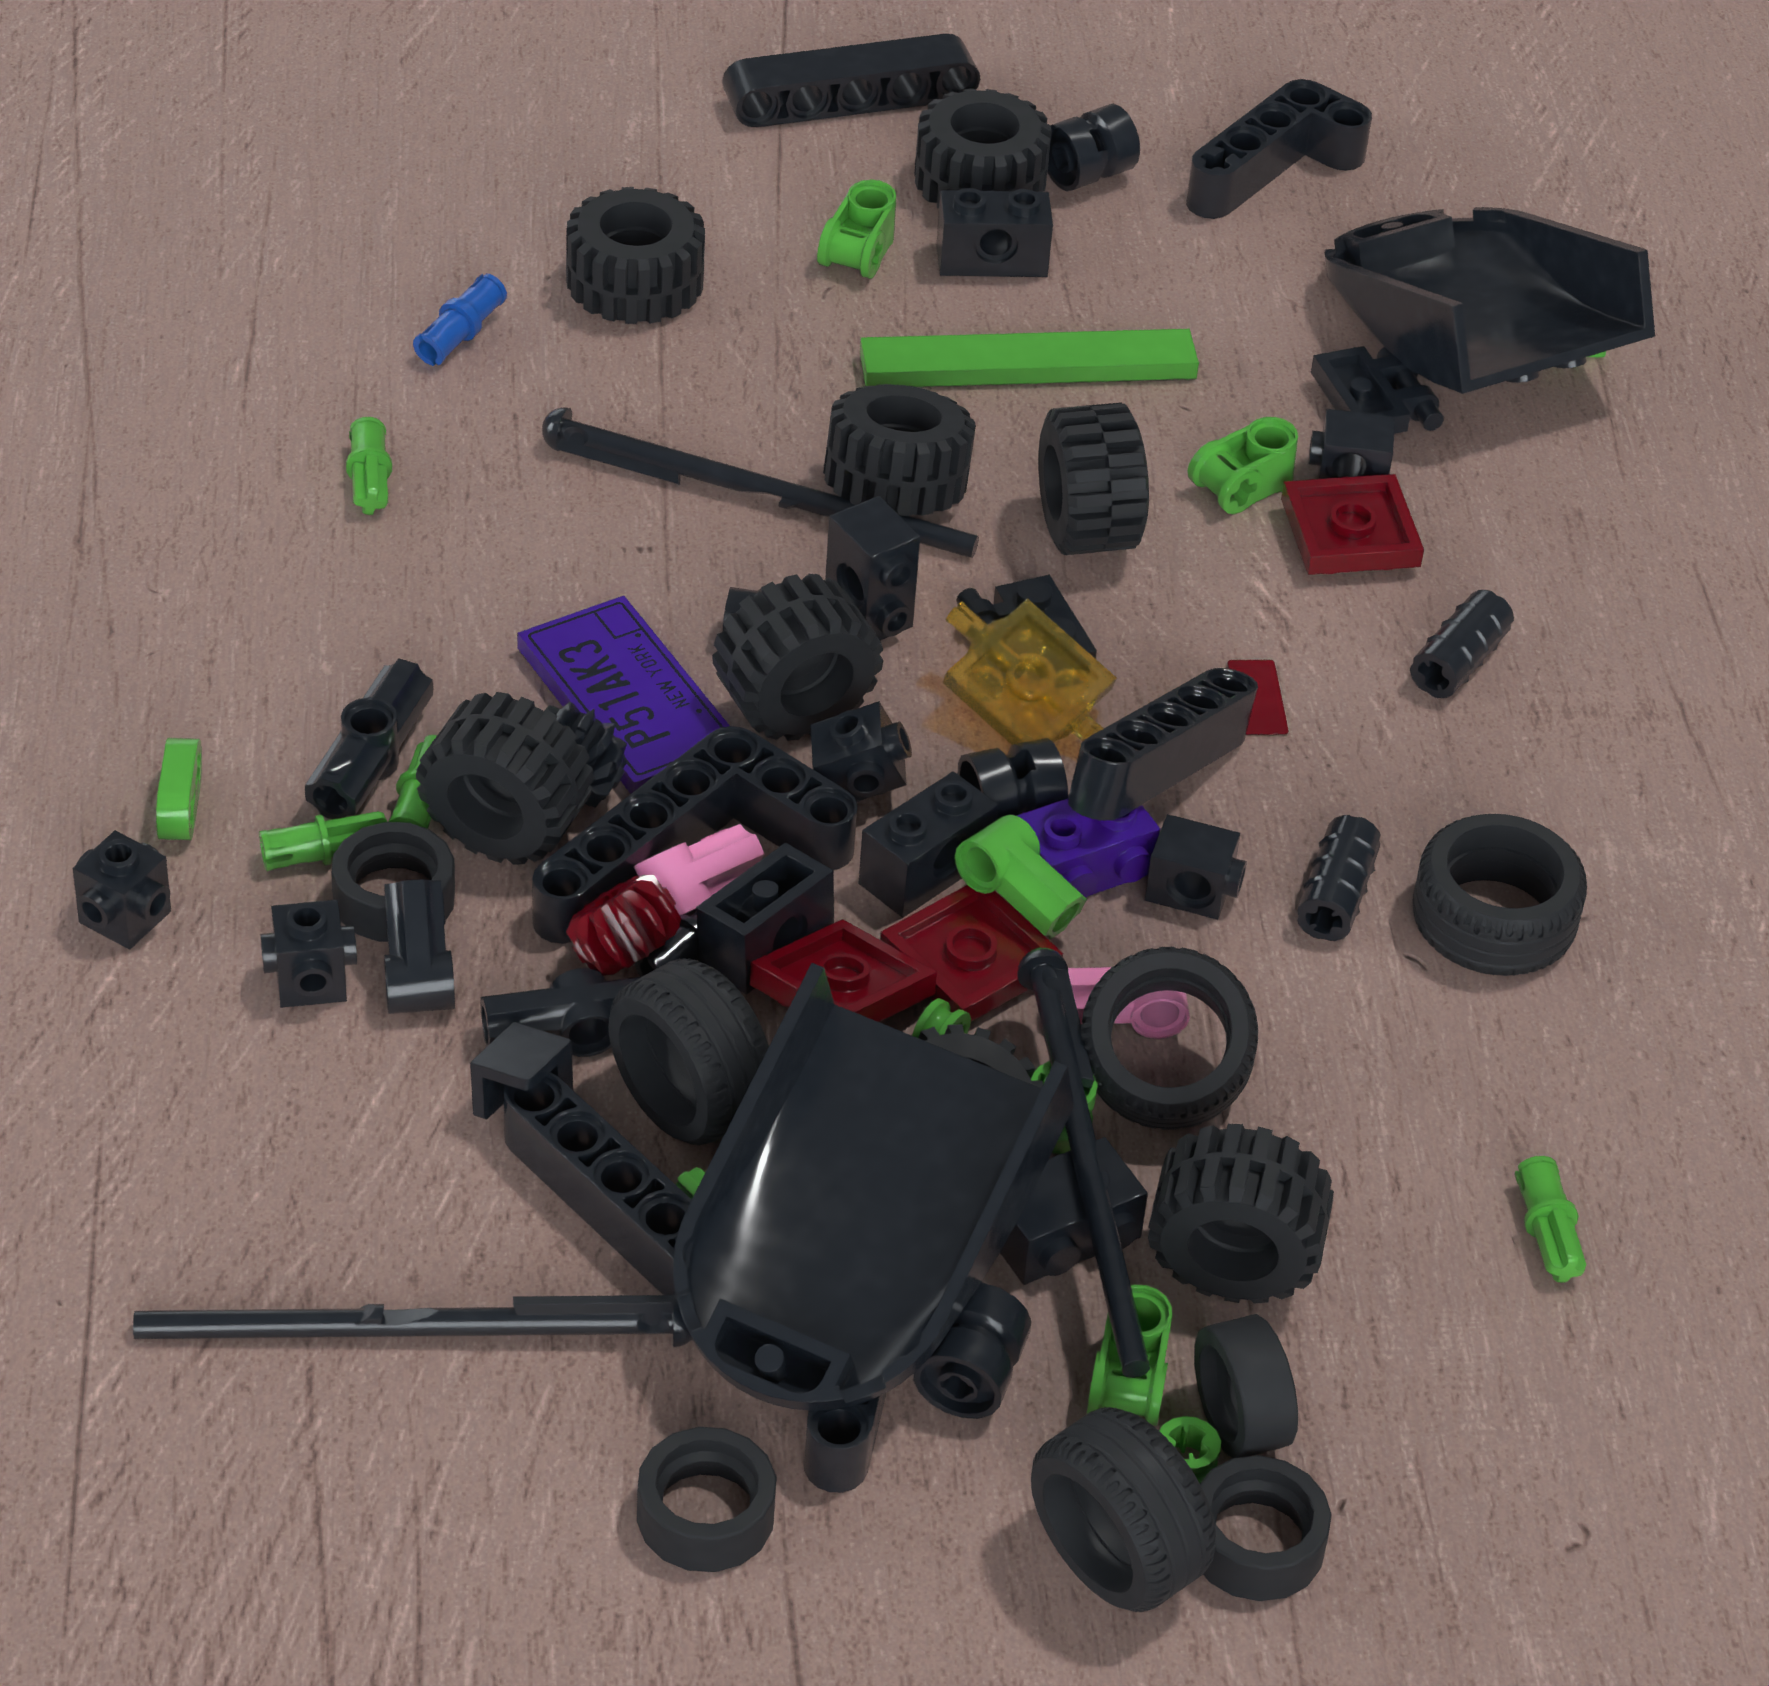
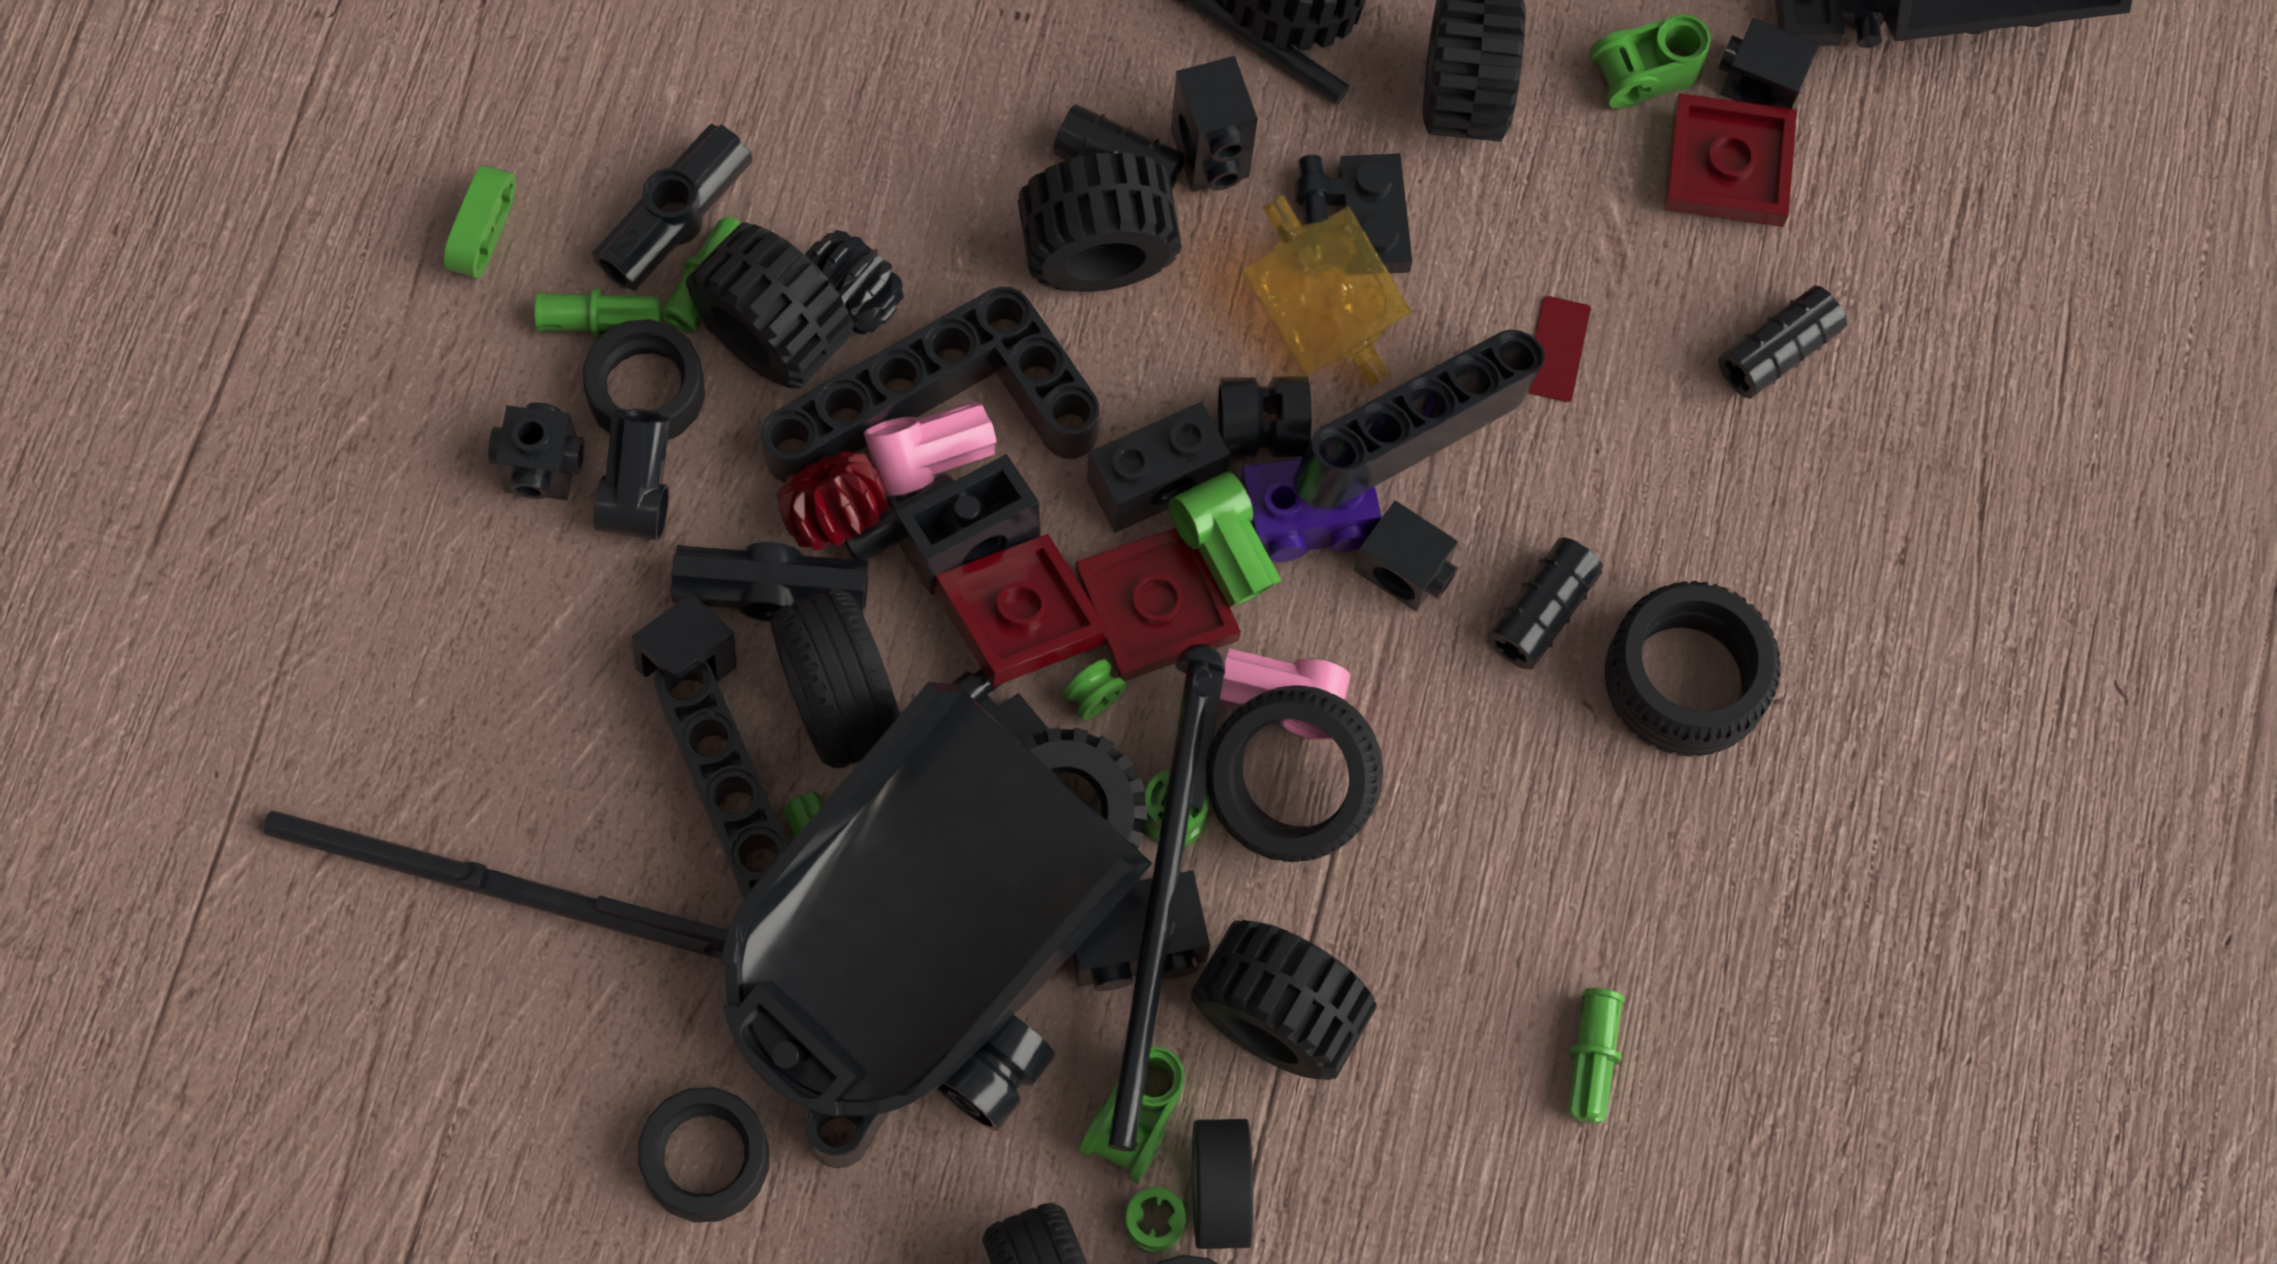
camera: 15 degrees right, 25 degrees up
(122, 889) = (389, 333): black brick -> none
(622, 670) = (939, 199): dark purple tile -> none
(861, 751) = (1127, 344): black brick -> none

